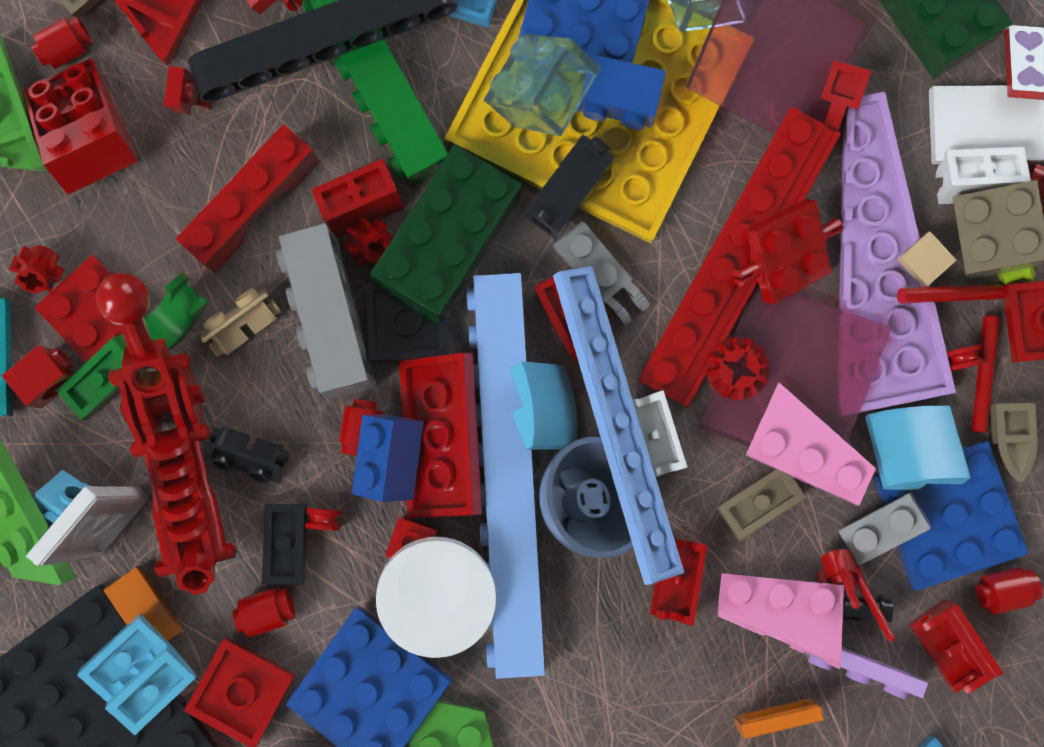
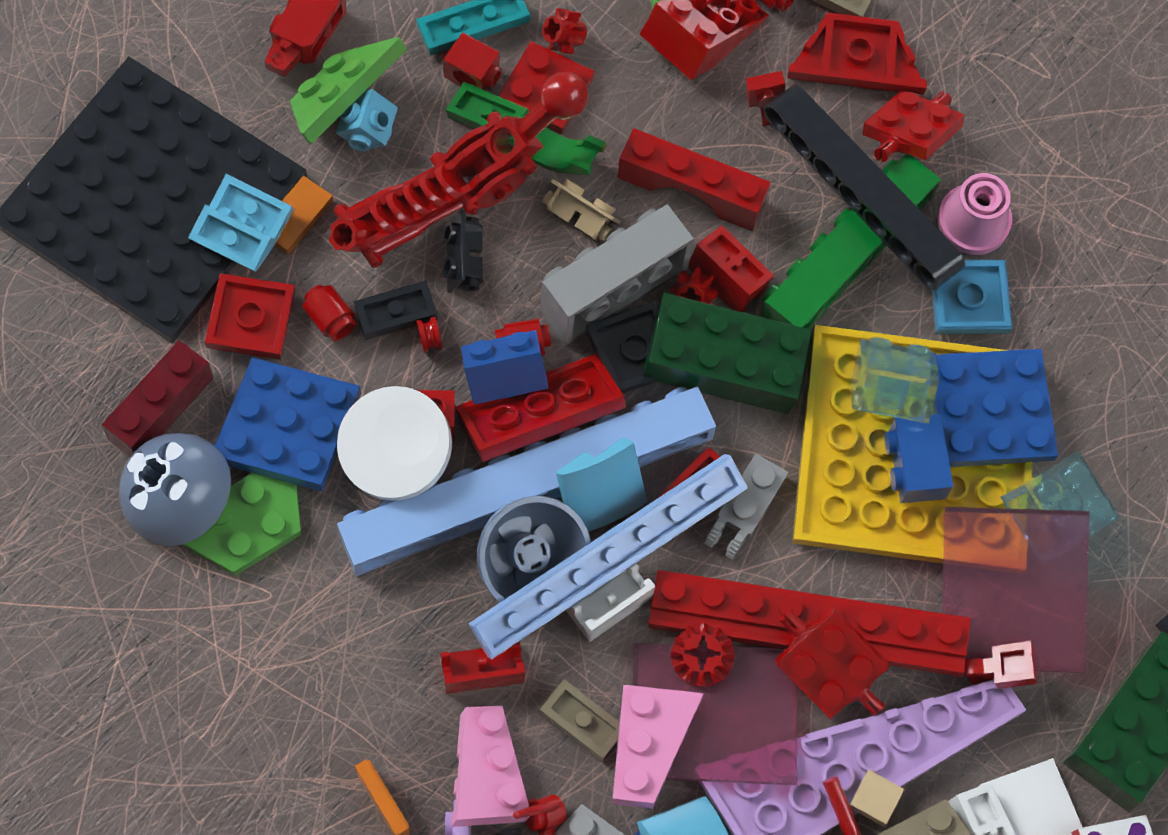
camera: 65 degrees right, 15 degrees down
(88, 524) = (363, 136): white tile -> none
(570, 186) = (813, 443): black brick -> none

